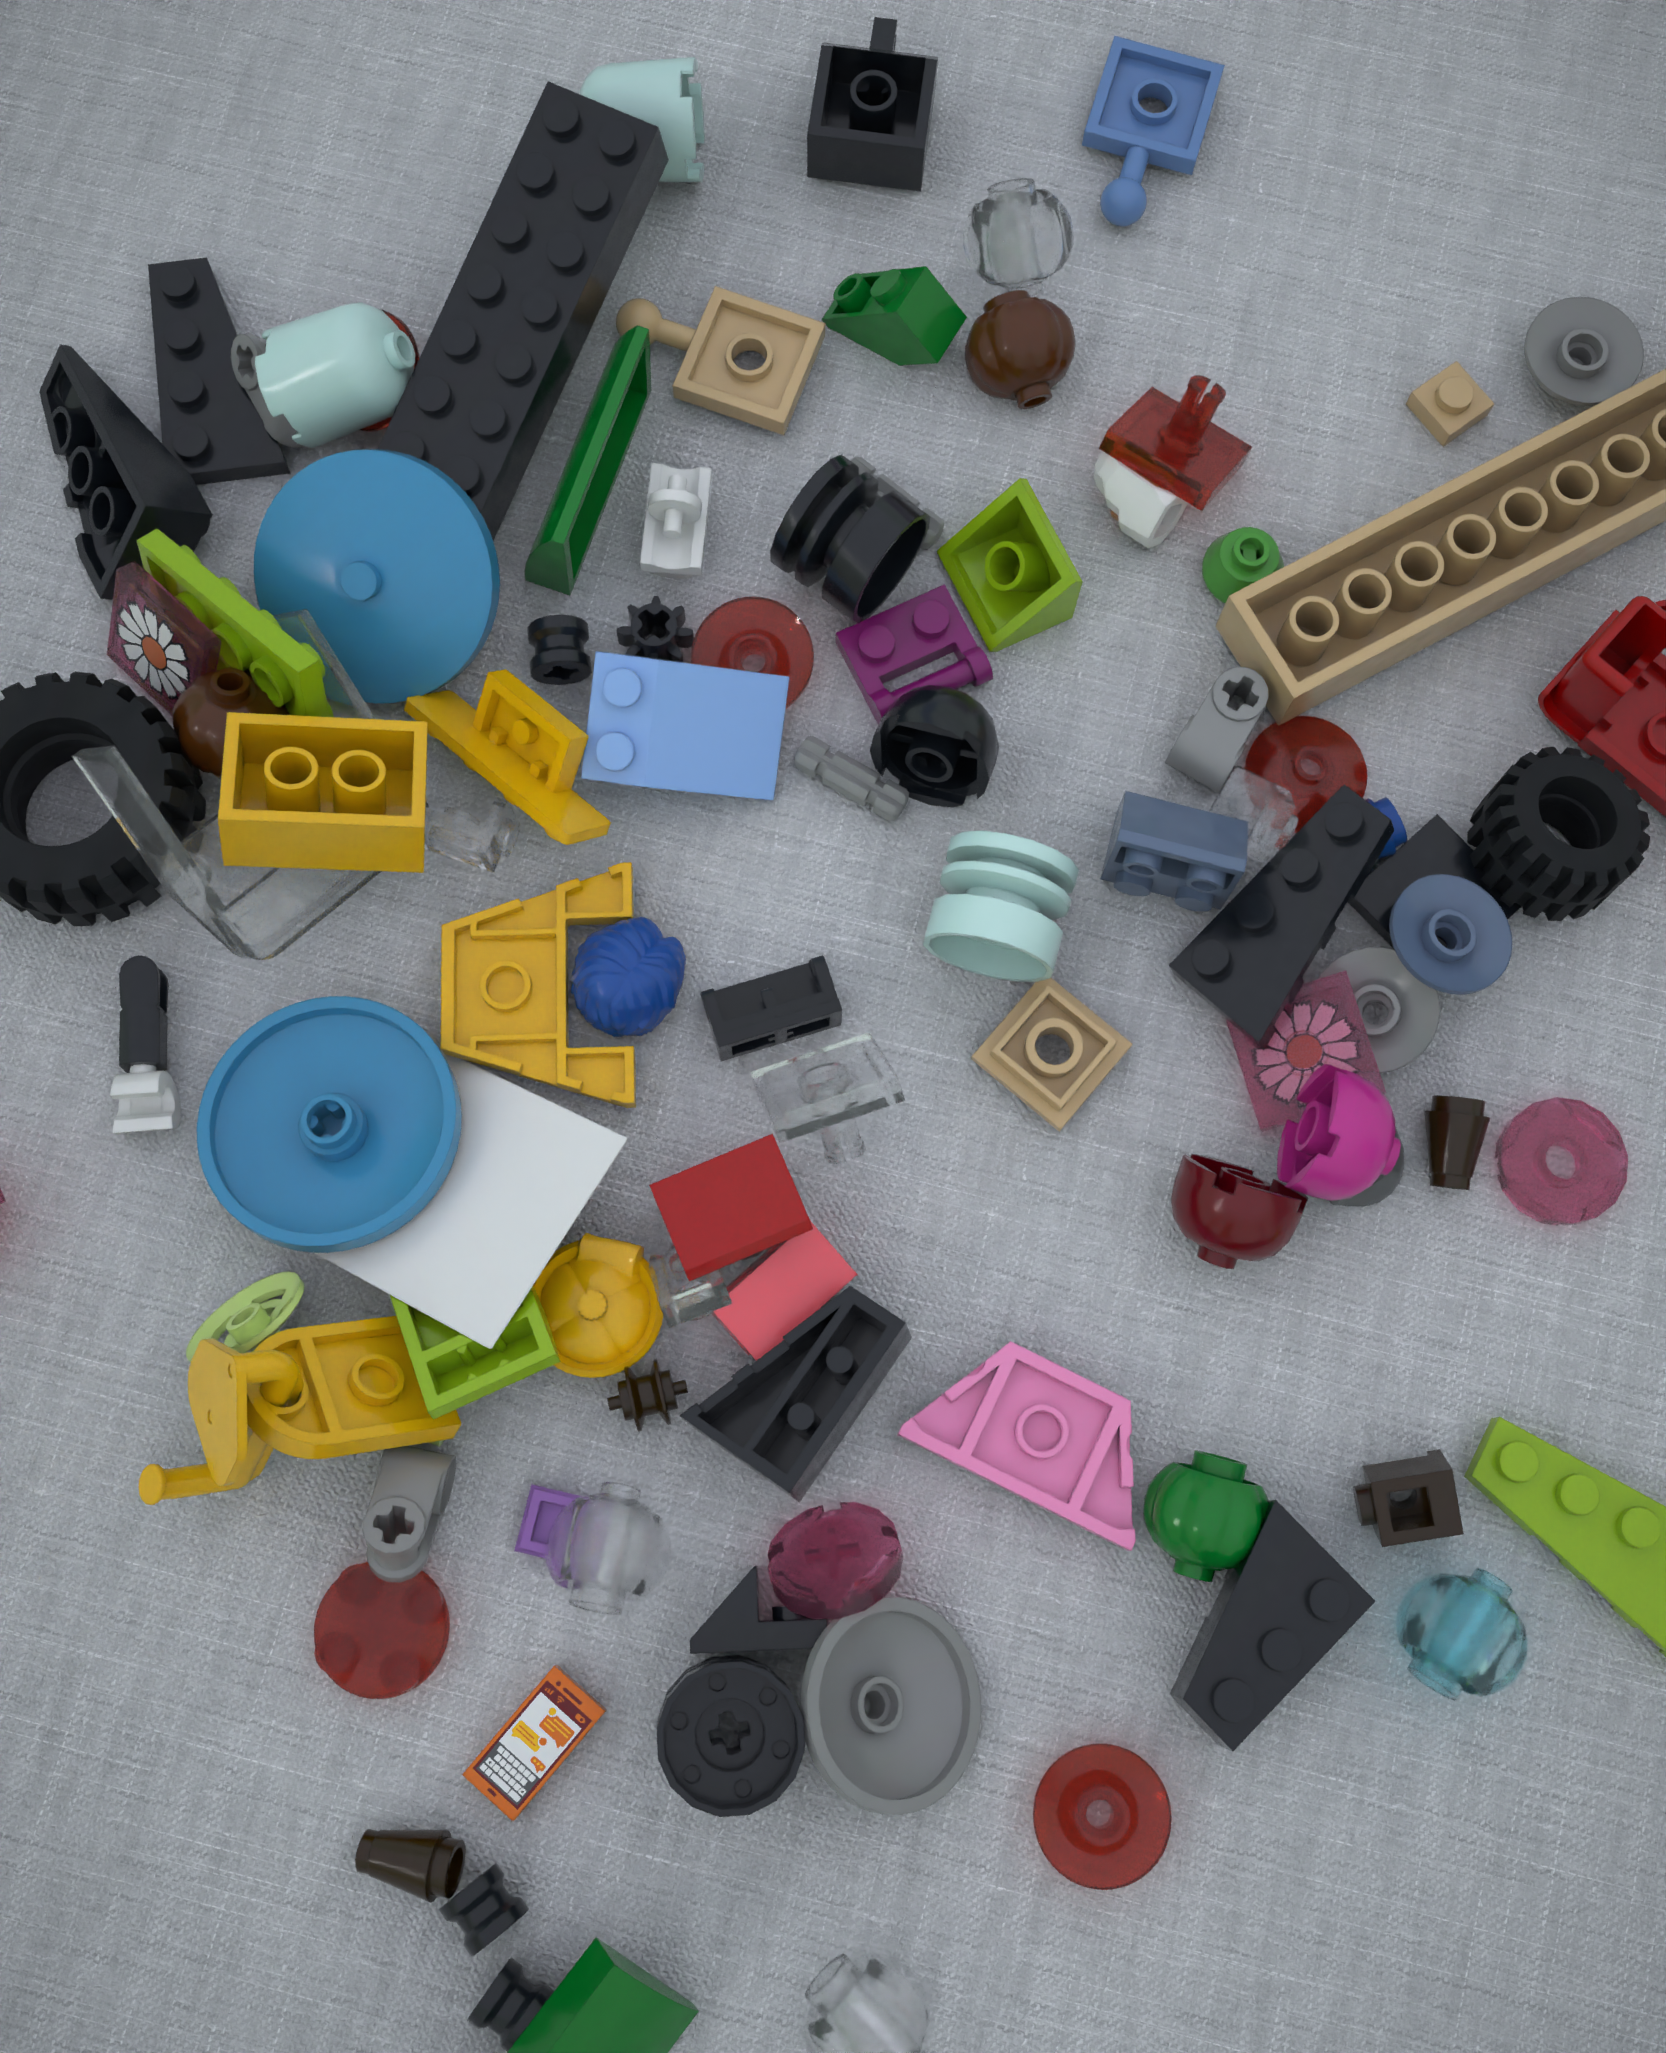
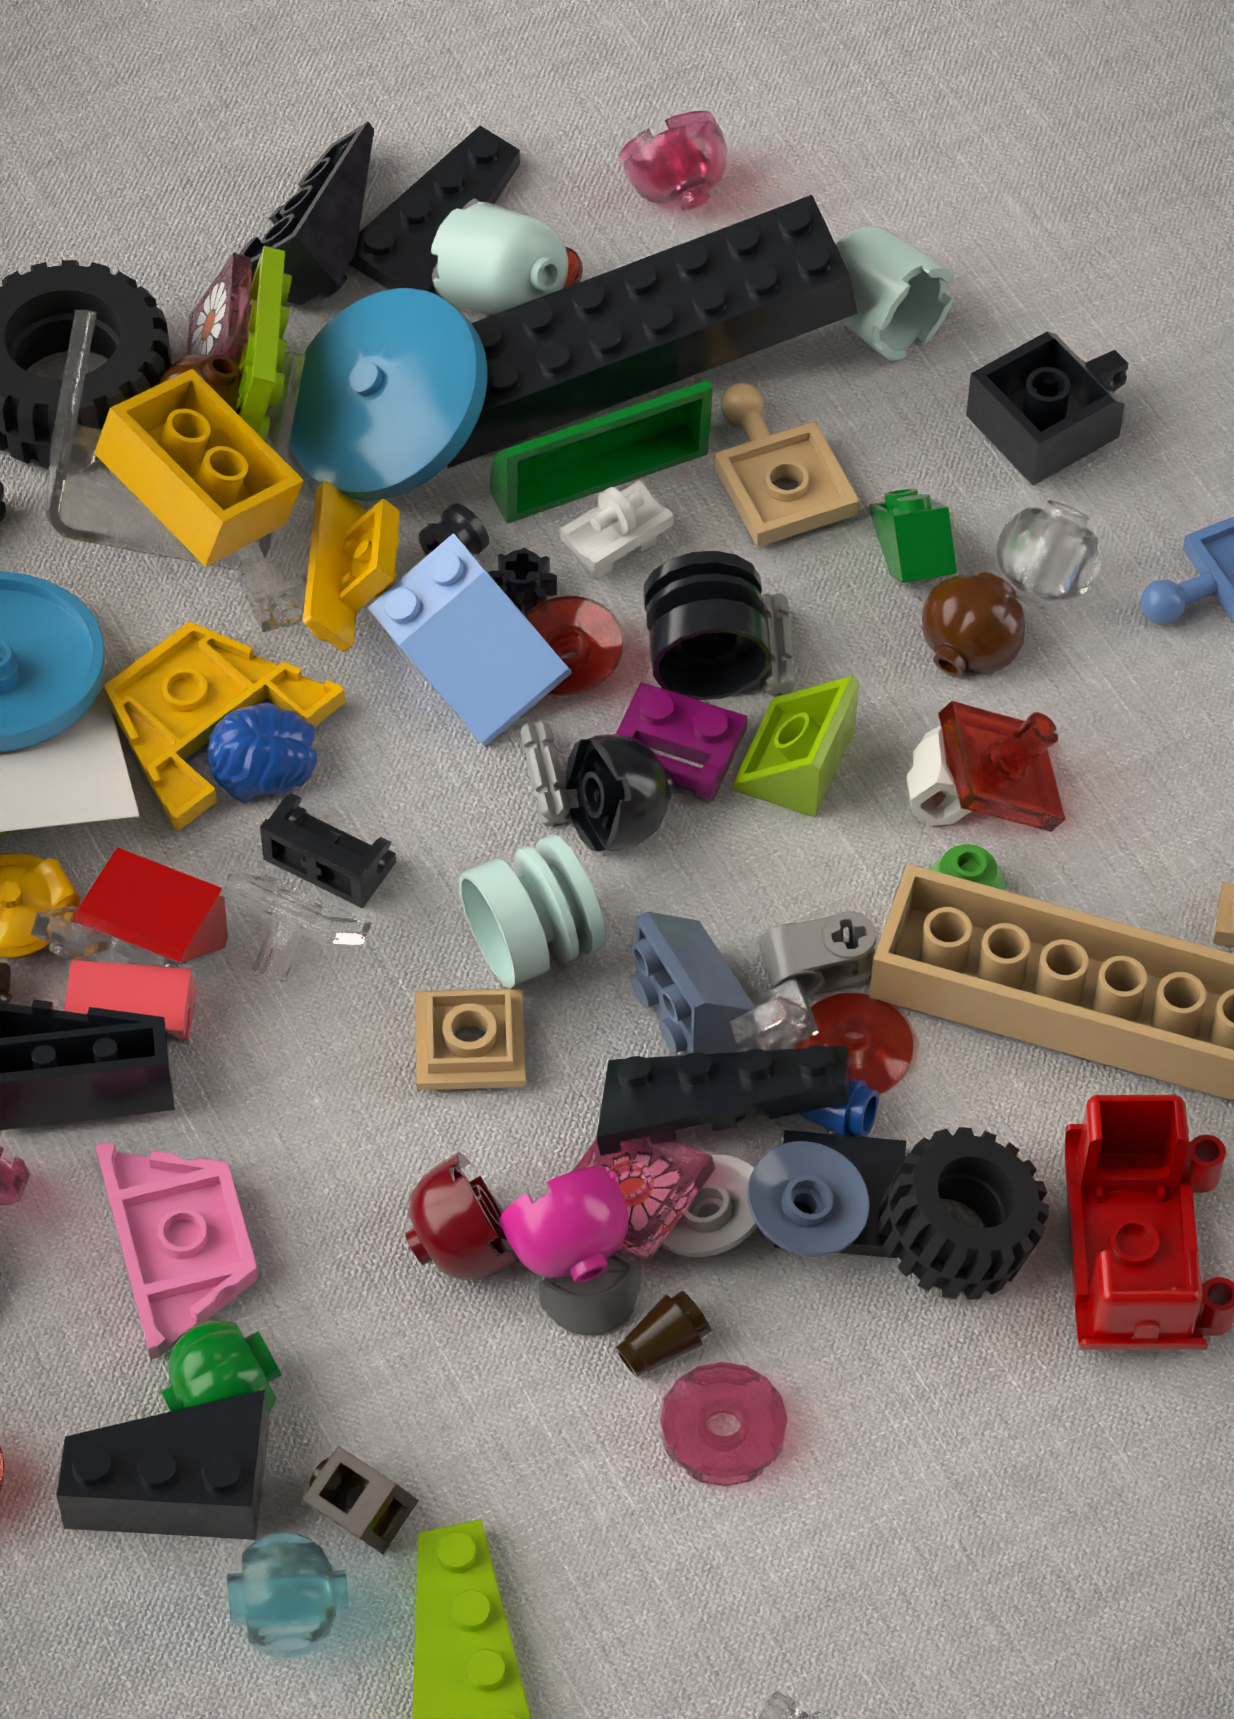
camera: 50 degrees right, 20 degrees down
(356, 154) = (677, 163): none -> clear pink cylinder

